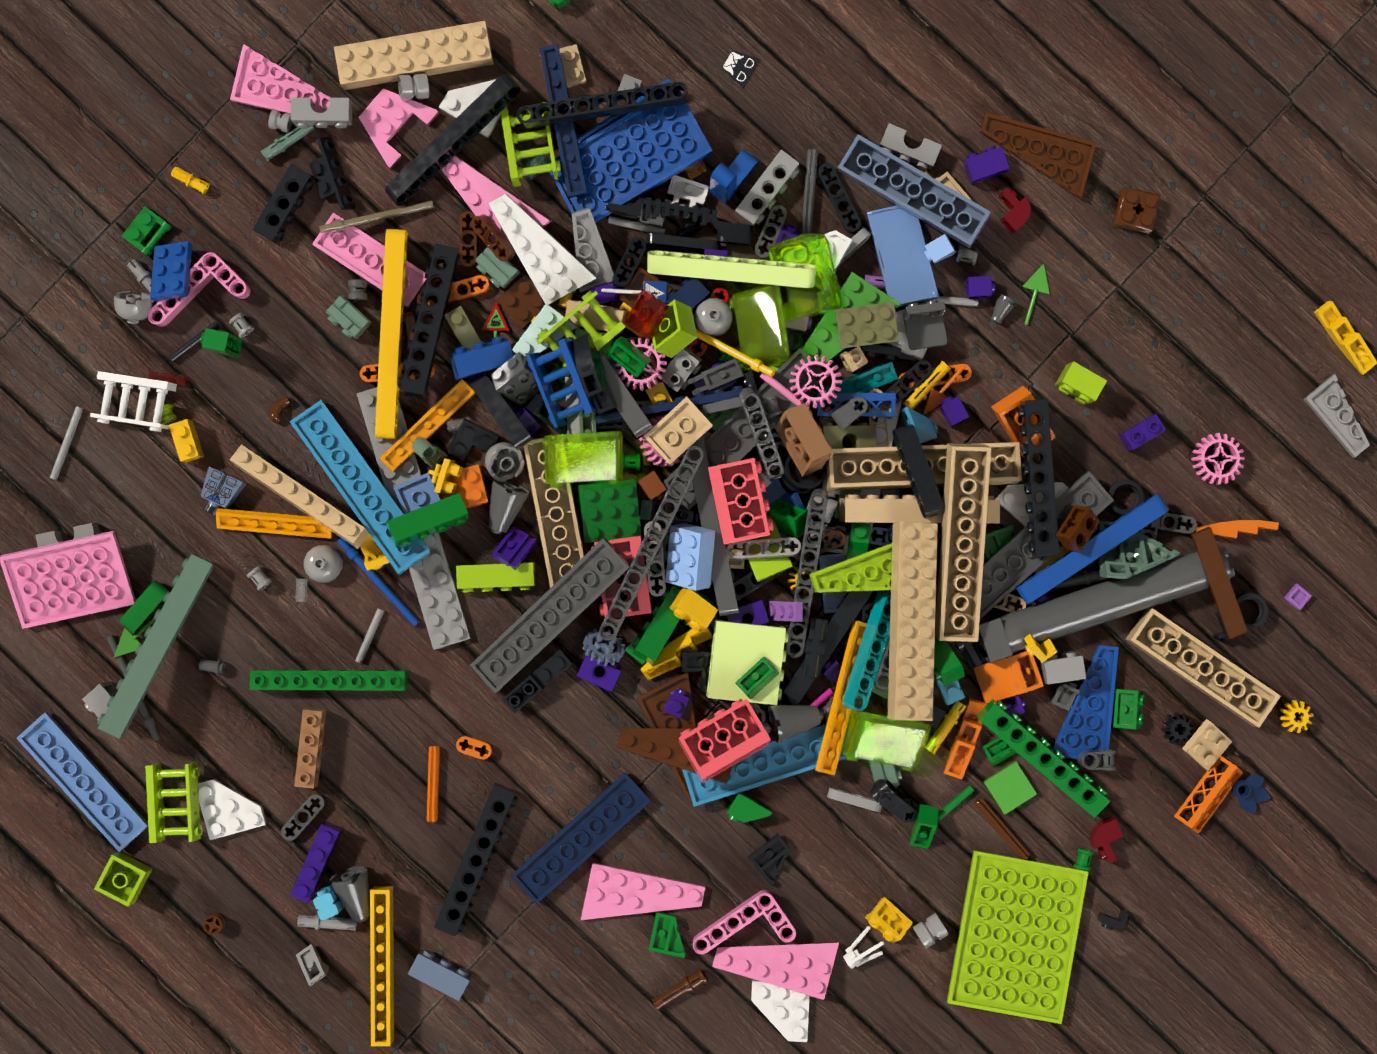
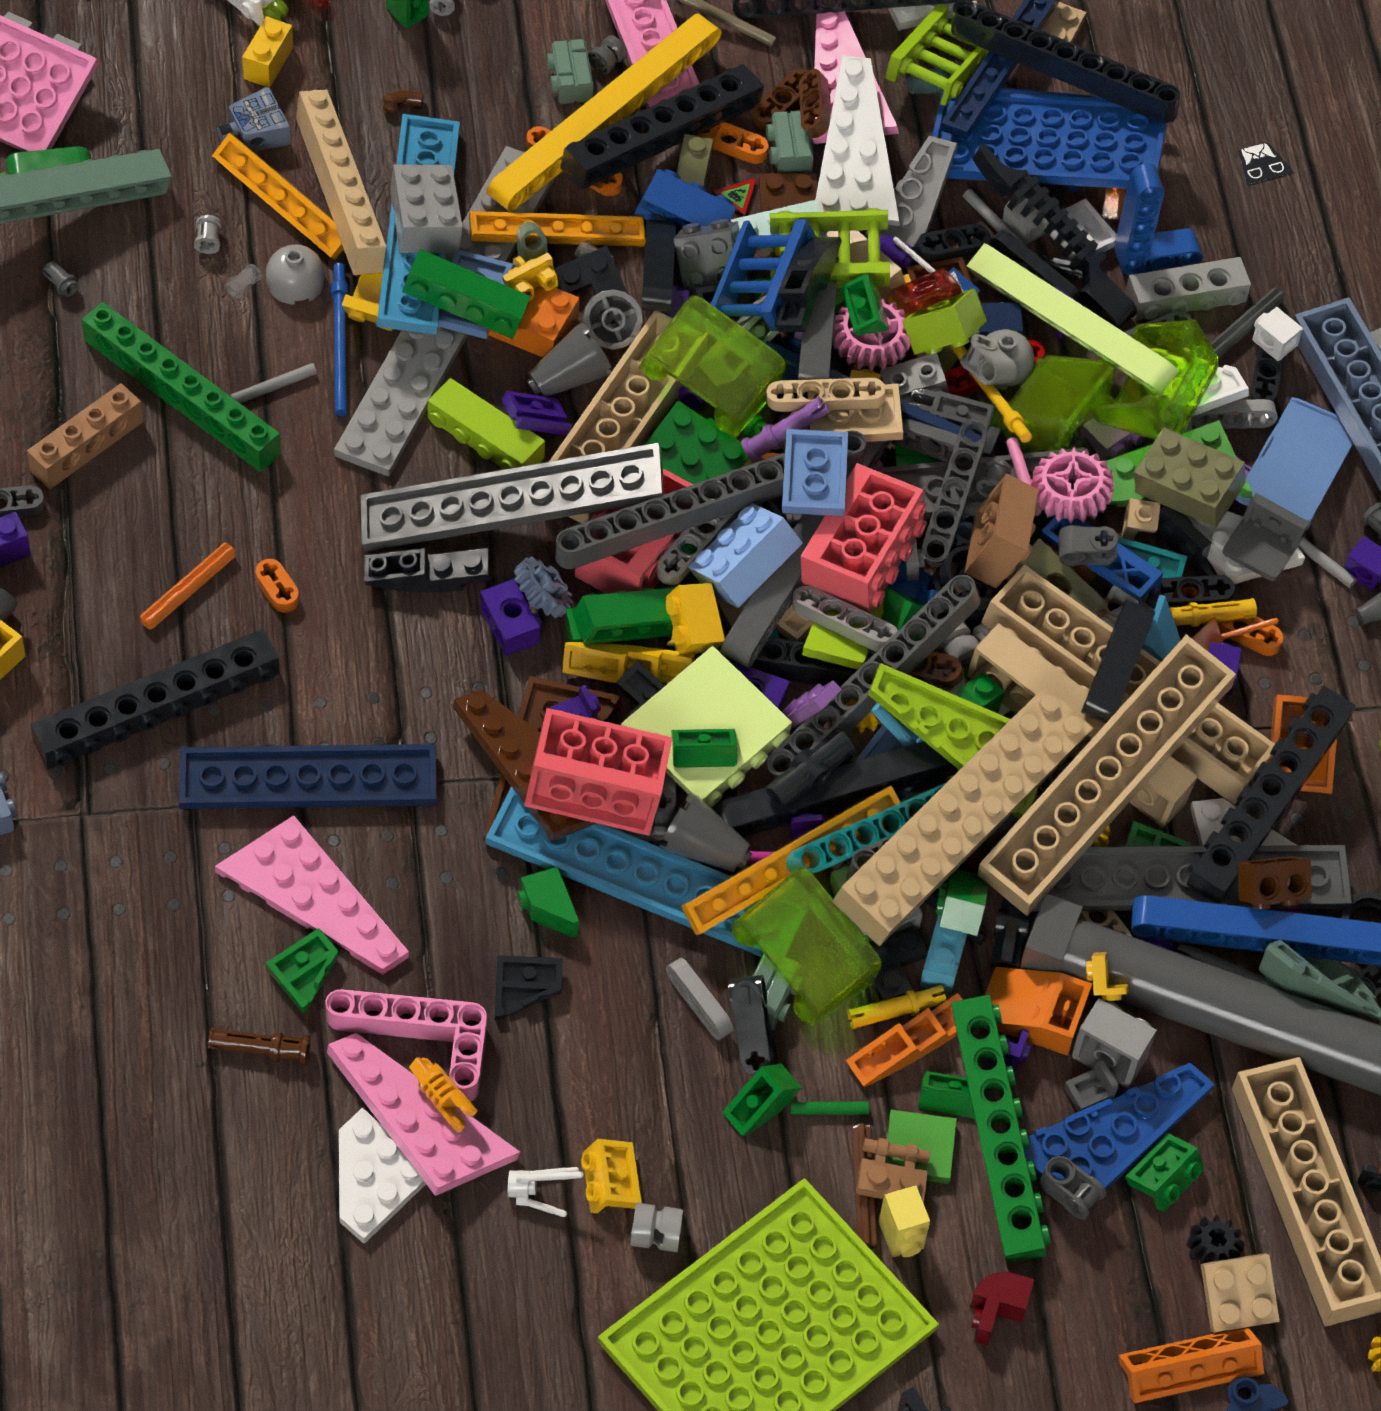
camera: 30 degrees right, 30 degrees down
(361, 483) = (426, 208): none -> light grey brick
(646, 473) = (774, 435): none -> medium lavender pin
(655, 432) = (826, 389): none -> tan beam
(694, 494) = (815, 472): none -> medium blue plate
(715, 336) = (988, 362): none -> light grey piece
(786, 951) = (442, 1092): none -> light orange hinge
(835, 184) = (1276, 333): none -> white brick
(939, 249) = (1352, 482): light blue slope -> none
(1014, 821) = (881, 1178): none -> medium nougat plate
(1038, 840) = (904, 1222): none -> light yellow brick
(1083, 859) = (947, 1305): green bush -> none

